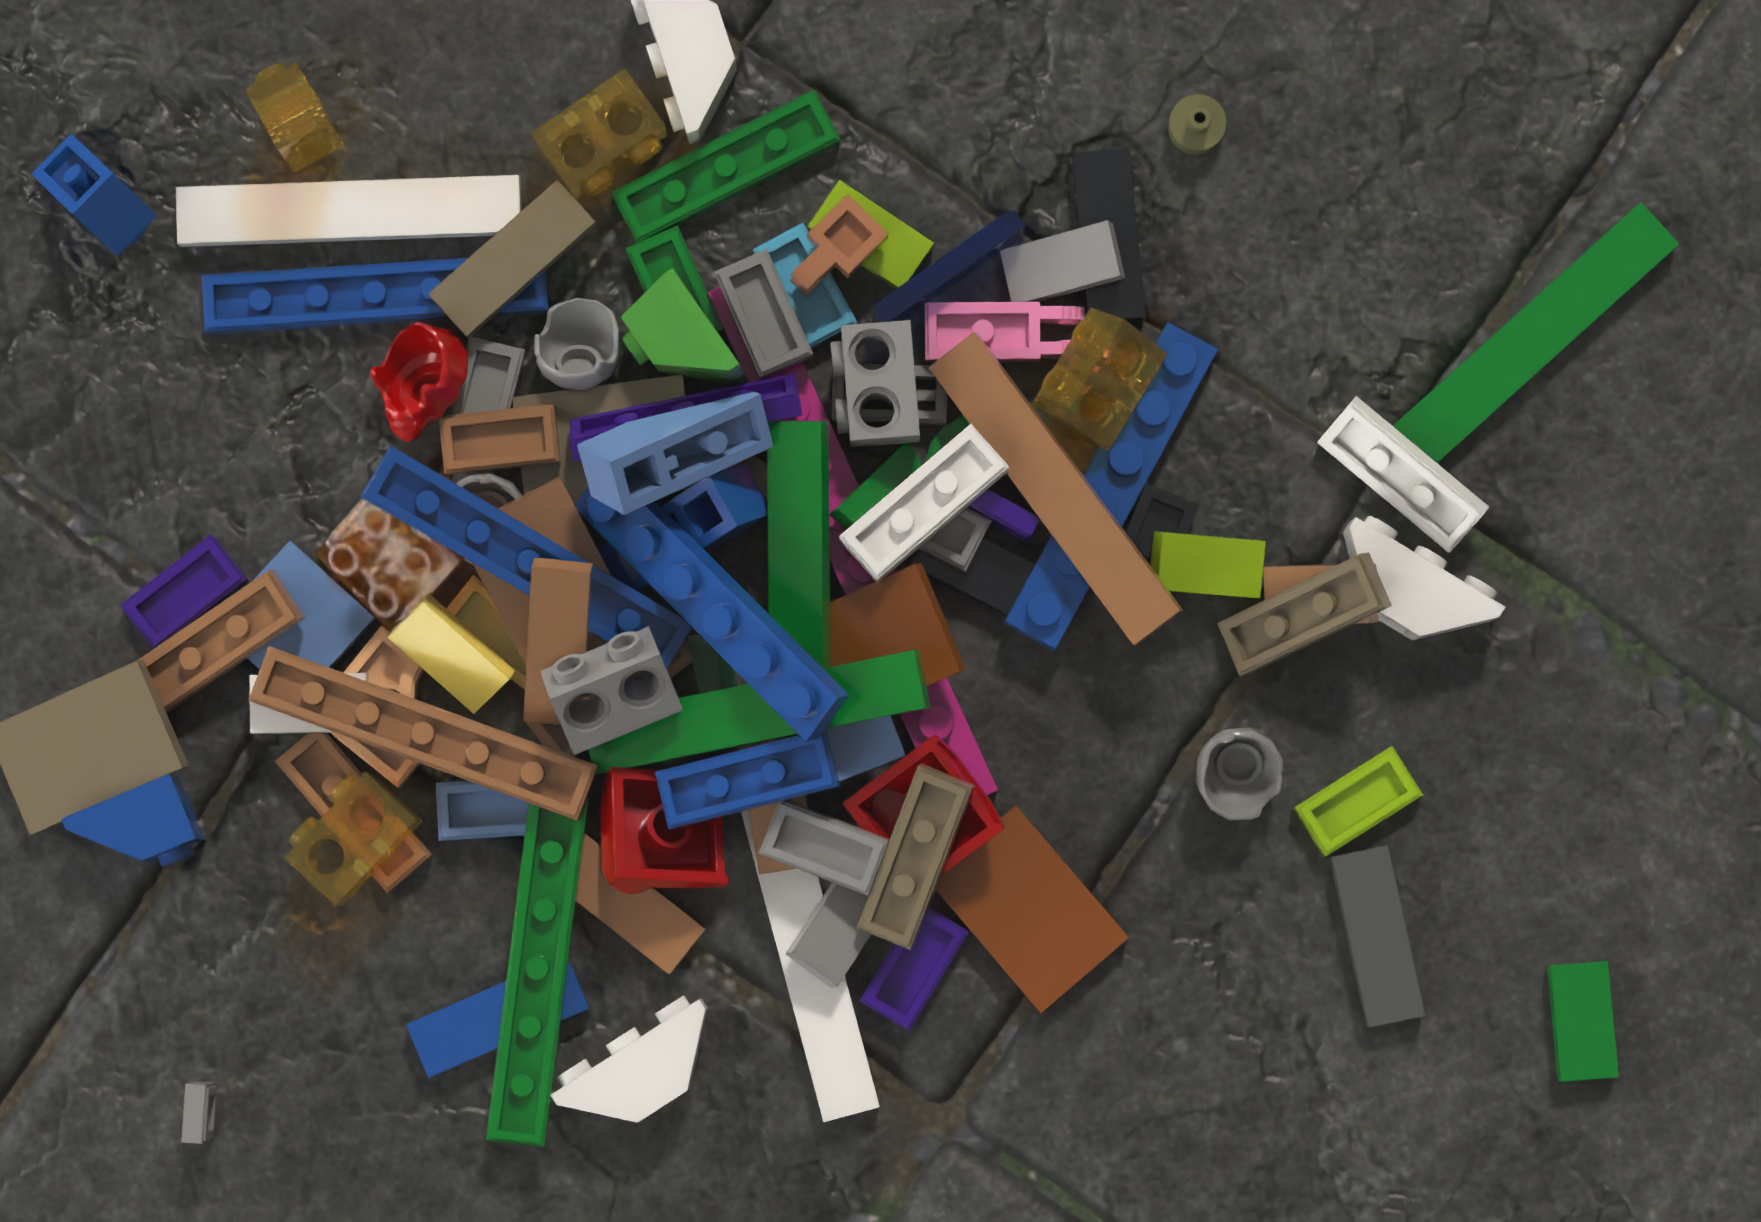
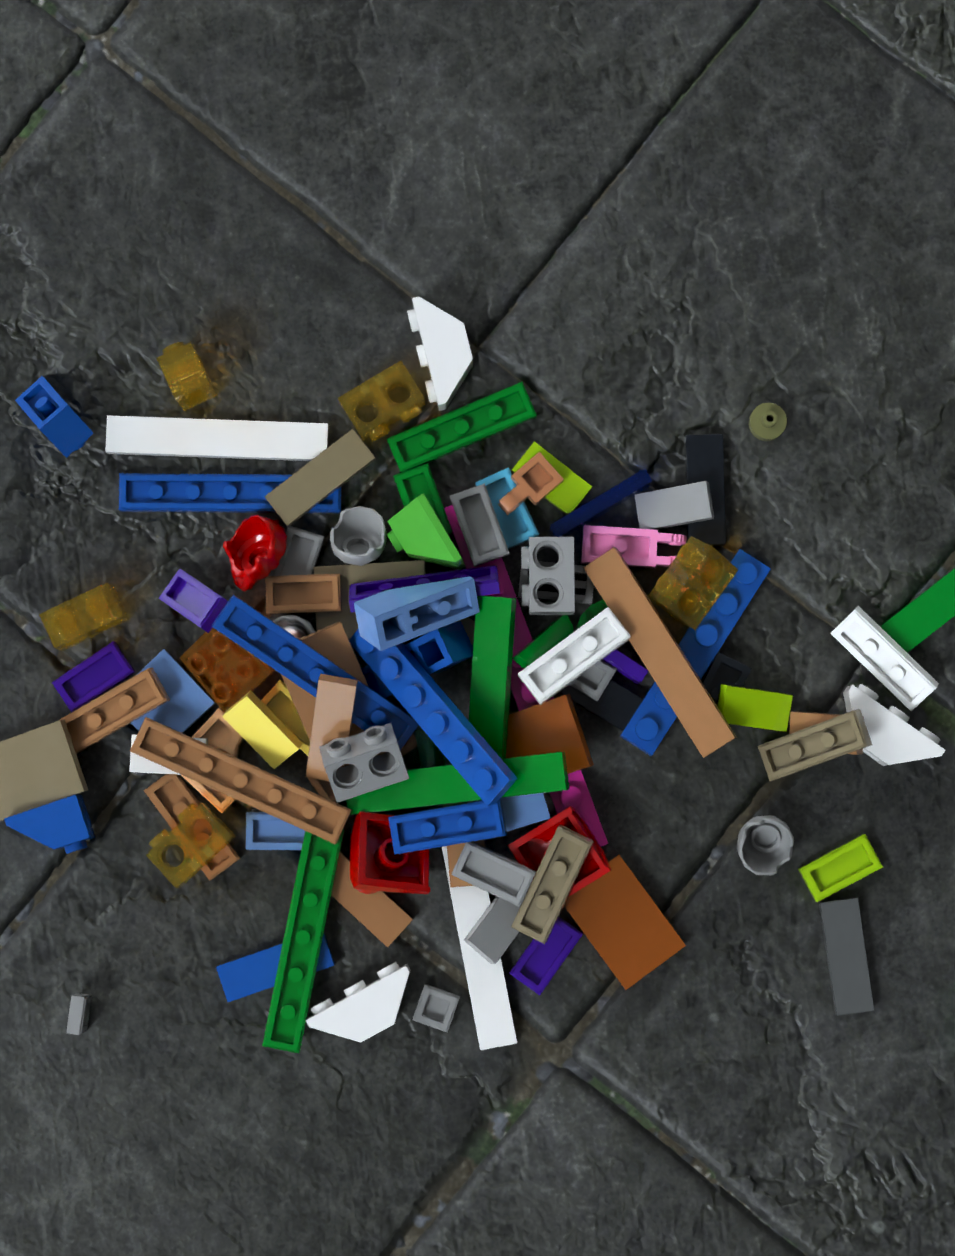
camera: 10 degrees right, 0 degrees up
(162, 500) = (84, 617): none -> clear yellow brick
(329, 461) = (193, 600): none -> dark purple tile
(750, 1062) = (436, 1008): none -> light grey tile

